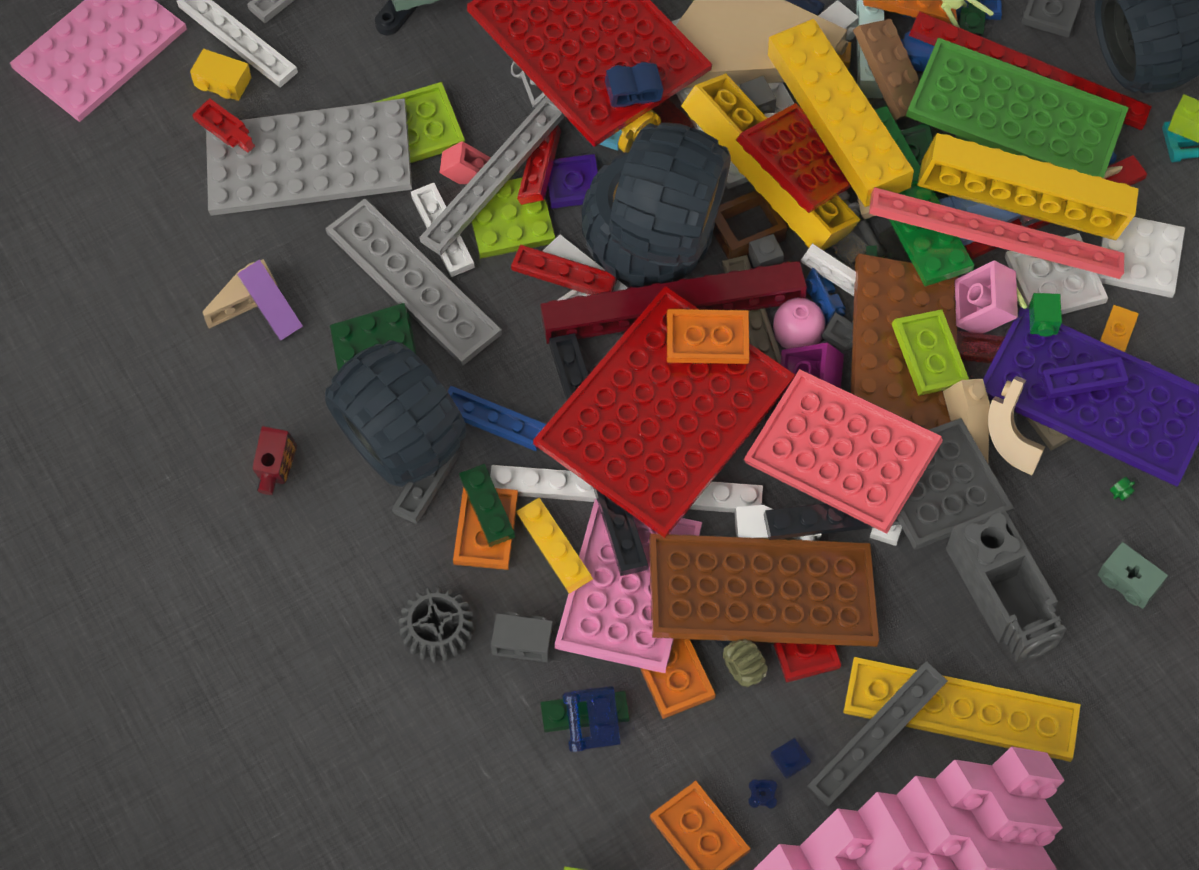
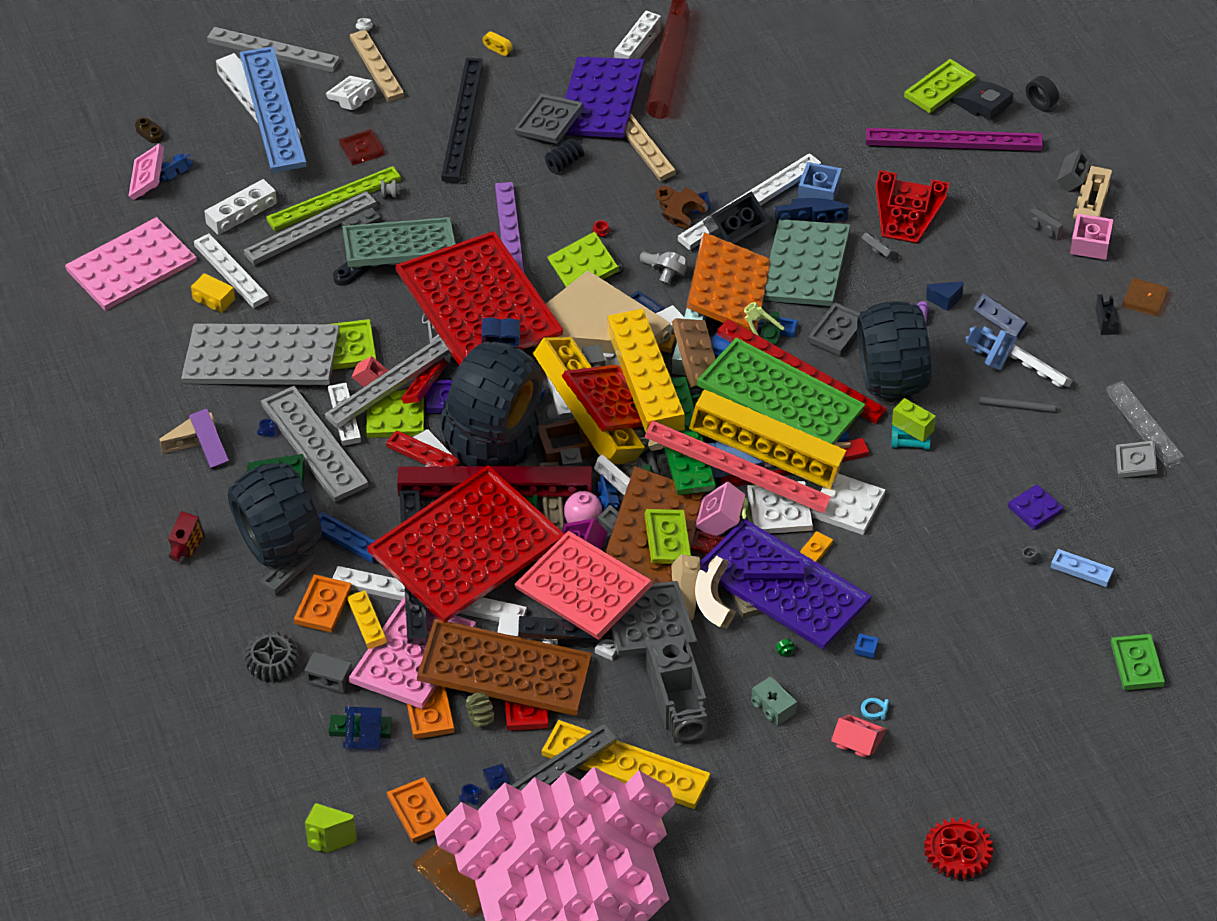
camera: 10 degrees right, 15 degrees down
(223, 125) = (205, 323): red hinge -> none
(342, 261) = (266, 428): none -> clear blue plate
(487, 505) = (326, 587): dark green plate -> none
(707, 336) = (507, 499): orange plate -> none
(1045, 314) = (757, 523): green brick -> none

